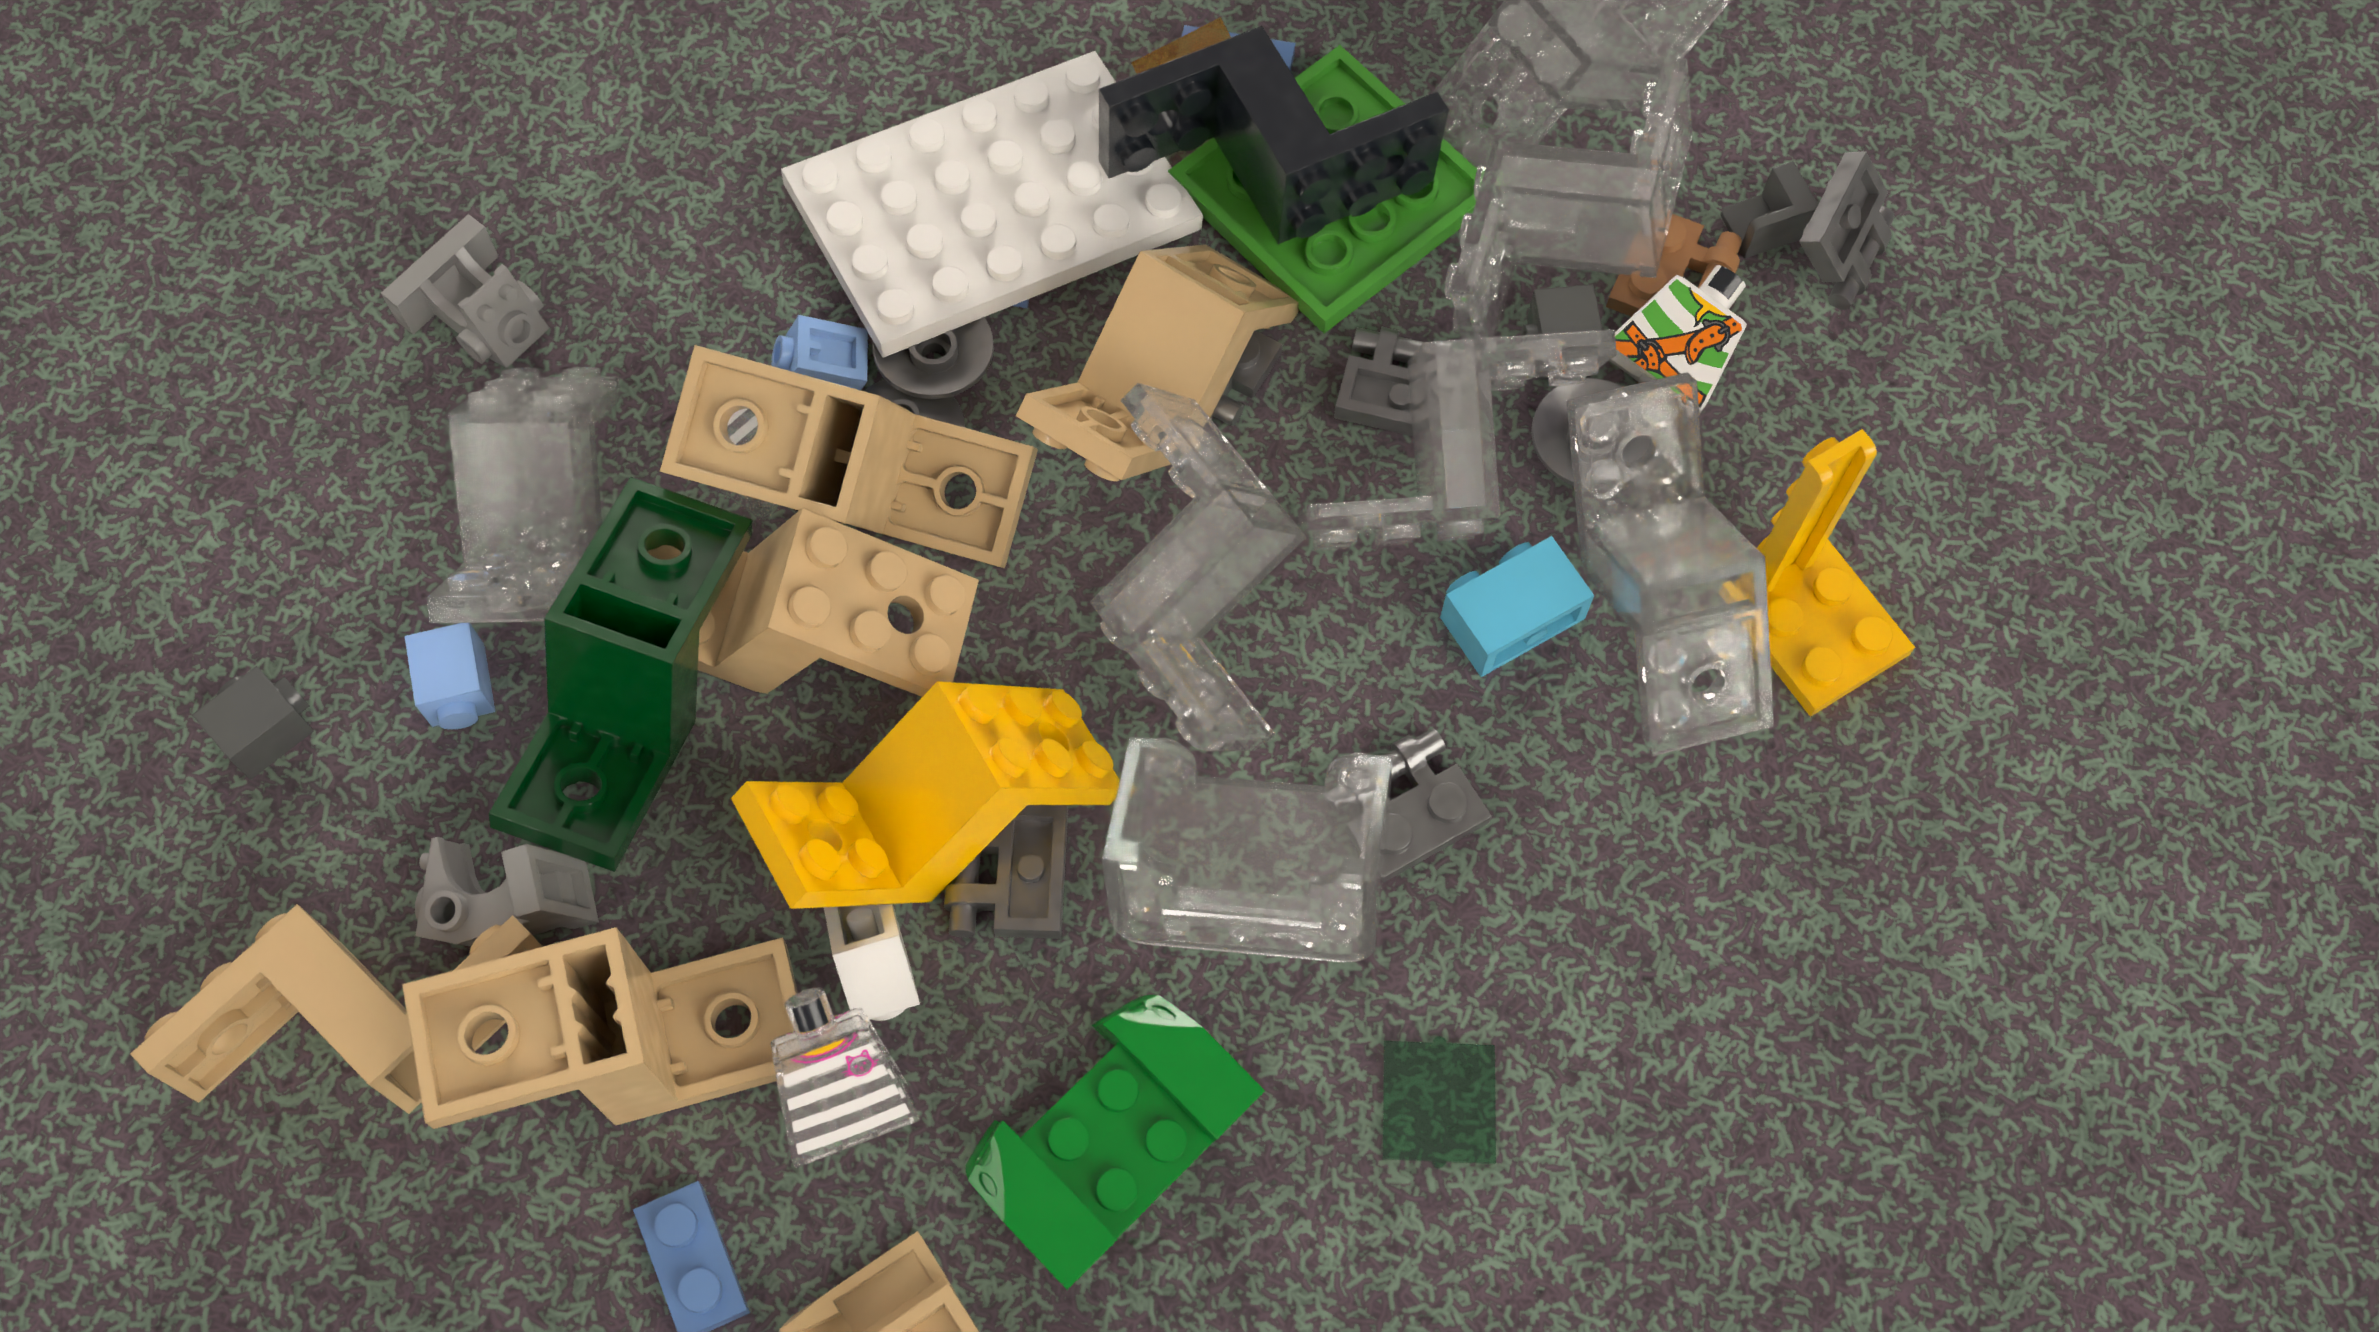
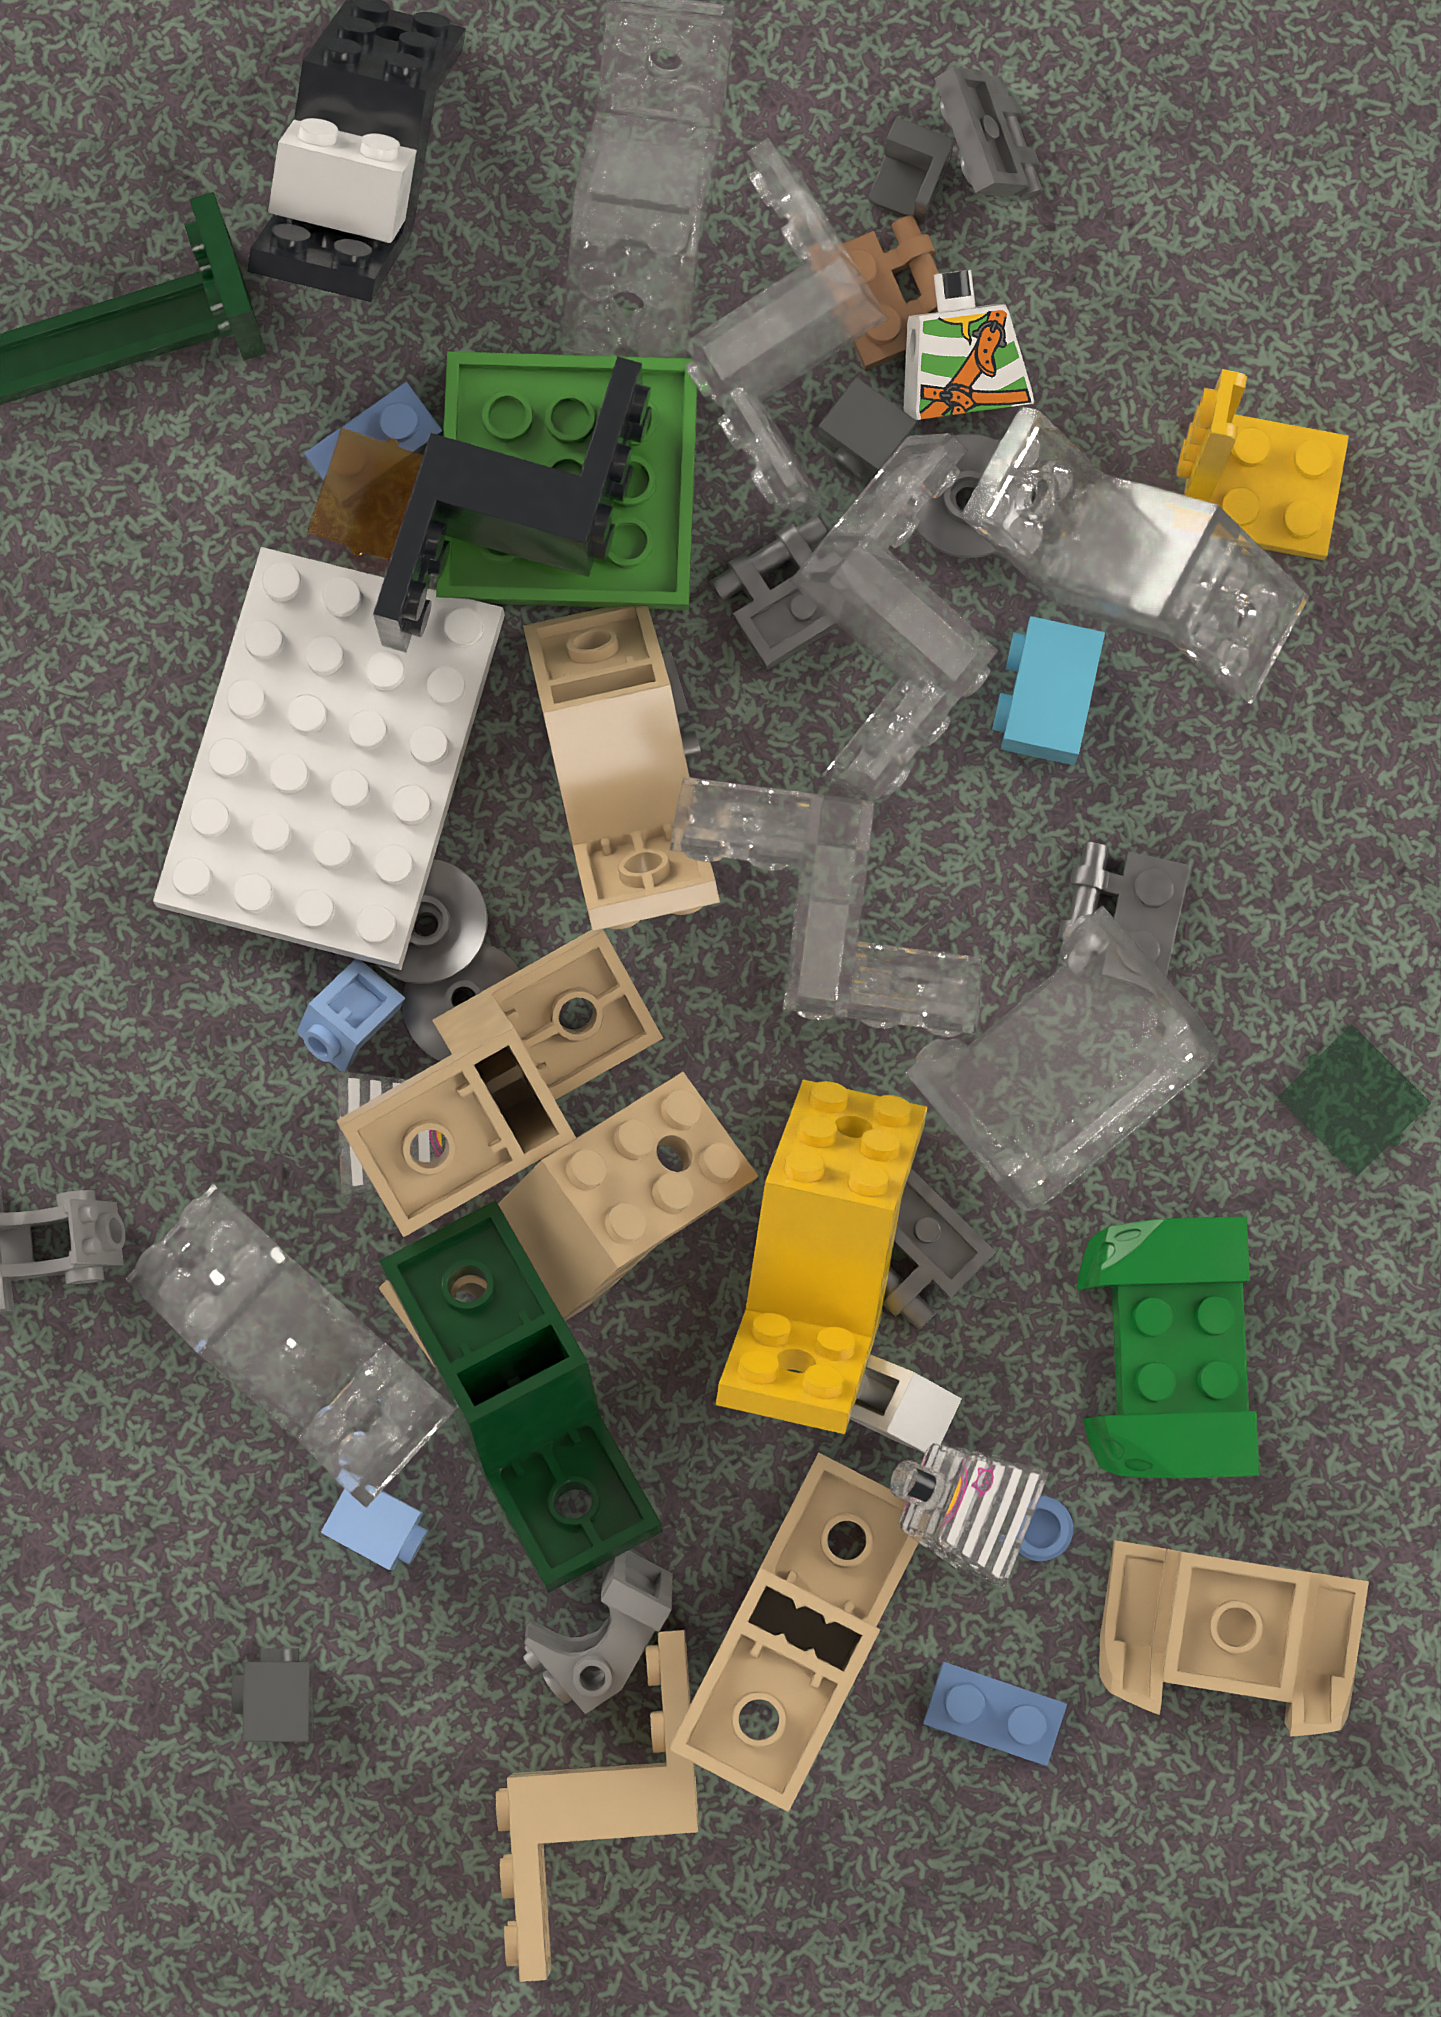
camera: 45 degrees left, 15 degrees up
(876, 1166) = (1048, 1531): none -> medium blue tile

